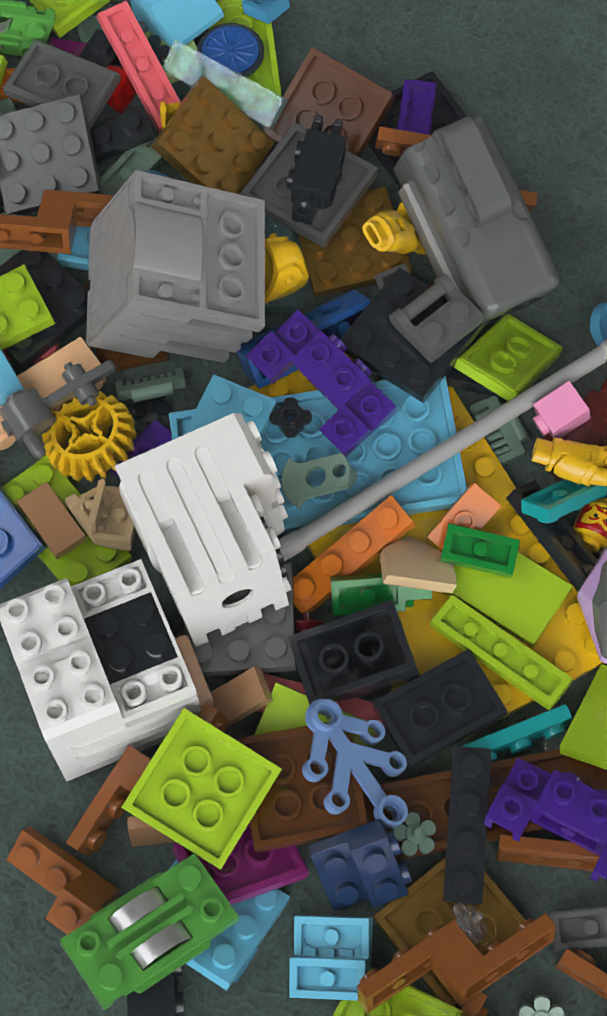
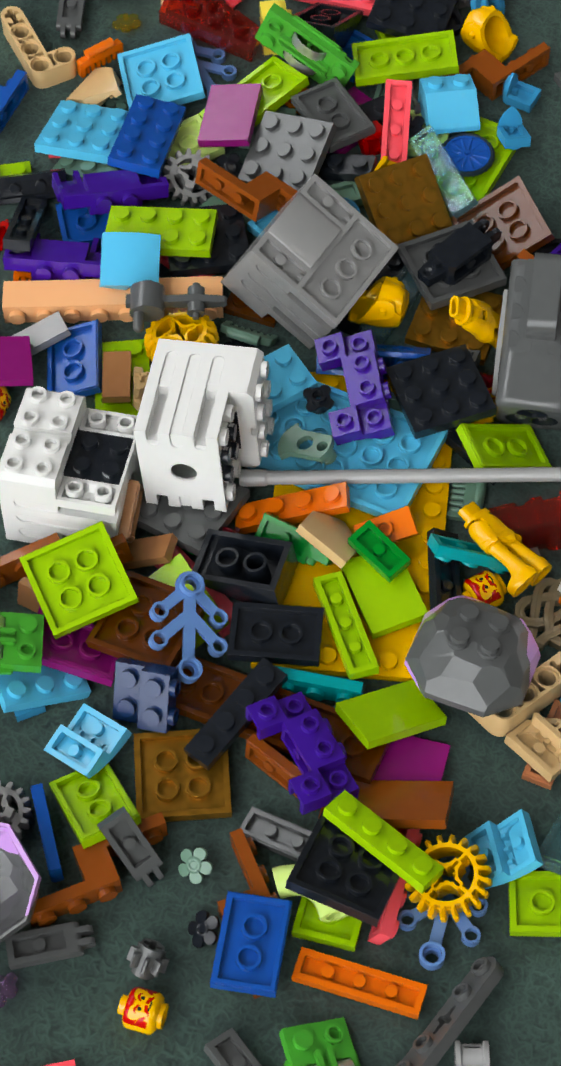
camera: 35 degrees right, 10 degrees down
(415, 835) = (198, 700): sand green plant -> none
(442, 327) = (461, 394): dark grey plate -> none
(455, 962) = (160, 788): dark orange bracket -> none
(470, 922) = (190, 771): clear plant -> none
(560, 411) = (504, 495): bright pink brick -> none

